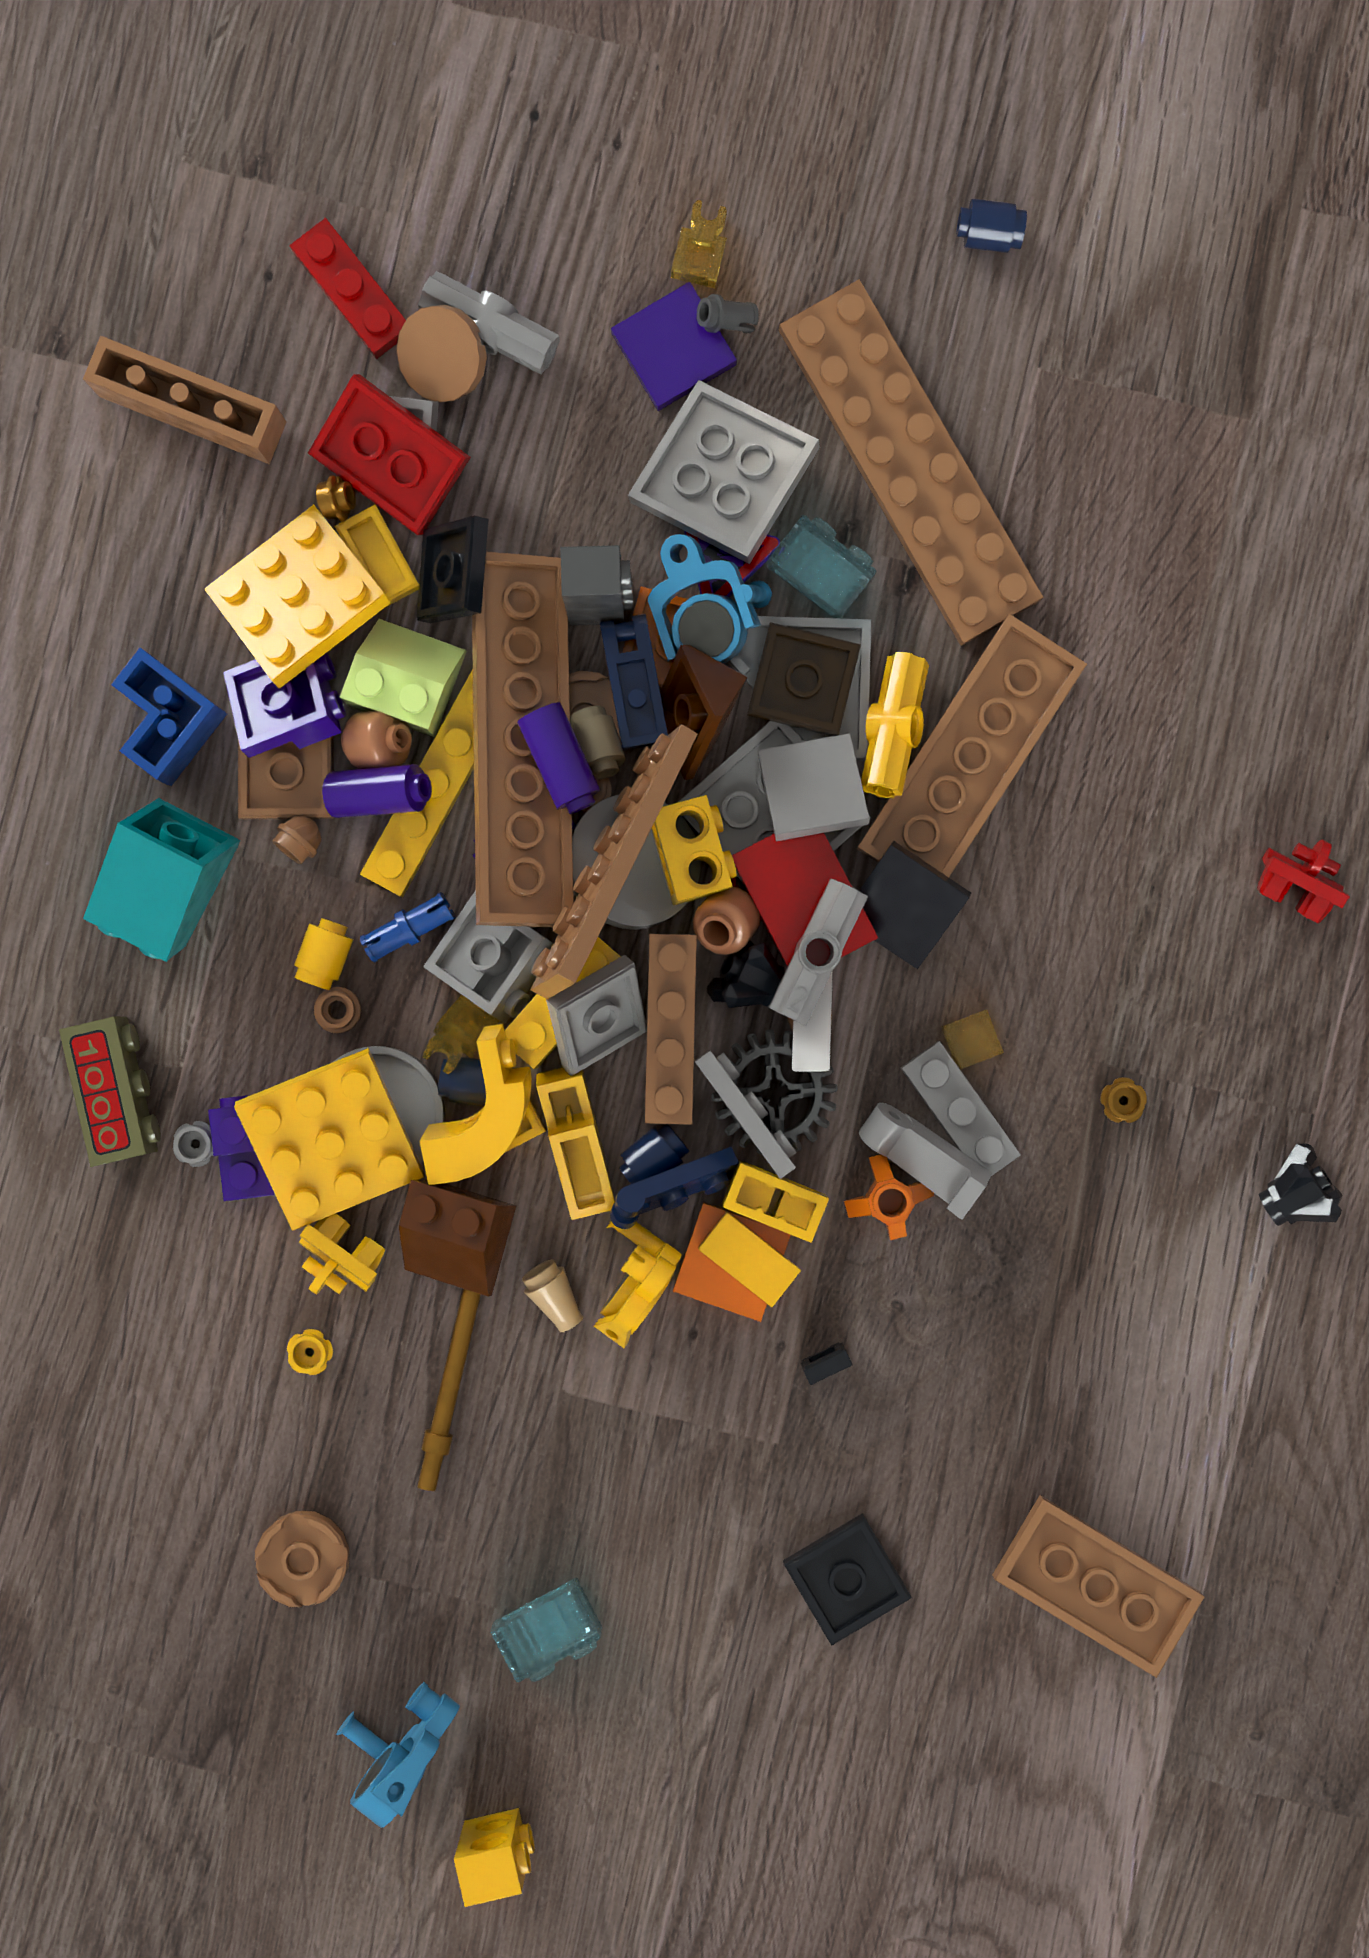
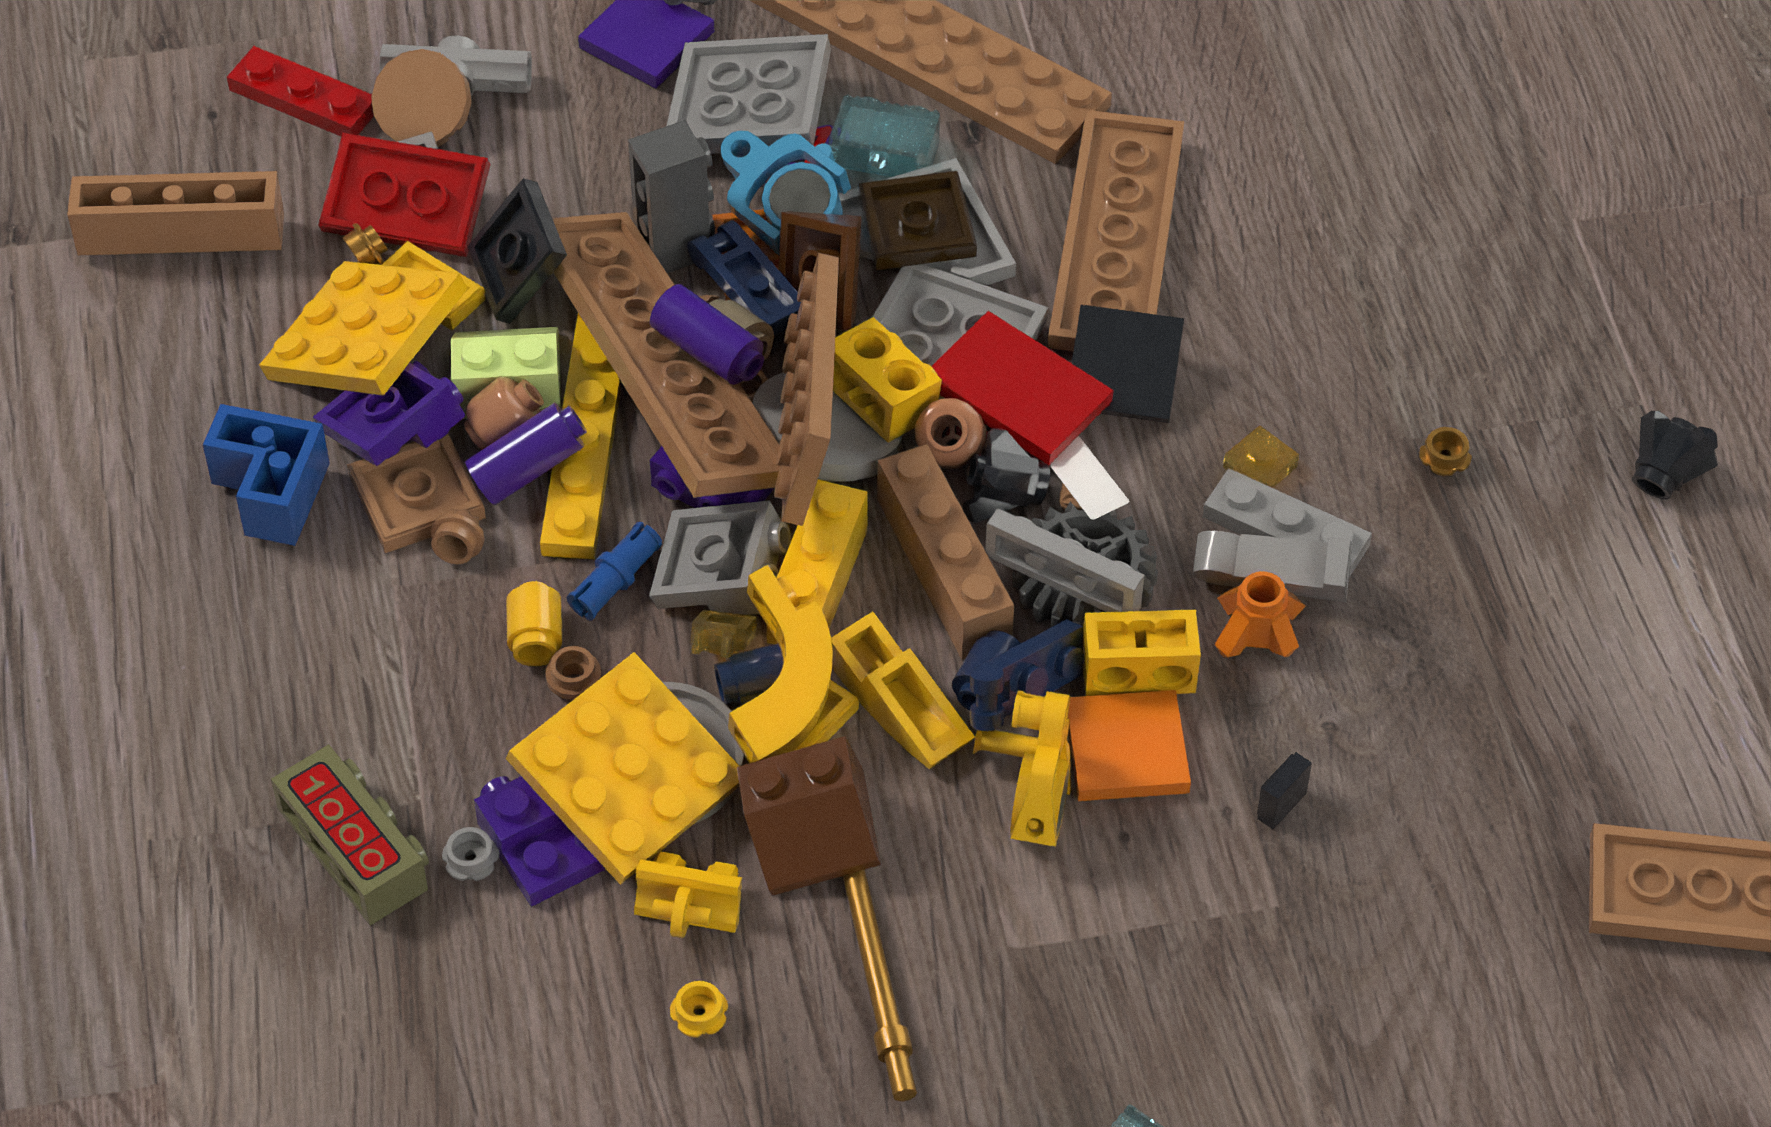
camera: 25 degrees left, 35 degrees down
(159, 878) = (321, 615): teal slope -> none
(552, 1293) = (947, 842): tan cone -> none
(597, 1015) = (861, 549): light grey tile -> none
(749, 1259) = (1144, 721): yellow tile -> none
(813, 787) = (976, 289): light grey tile -> none
(833, 924) = (1059, 406): light grey piece -> none
(847, 1579) = (1433, 1002): black tile -> none
(894, 725) = (1027, 226): yellow piece -> none
(1320, 891) = (1499, 205): red hips -> none

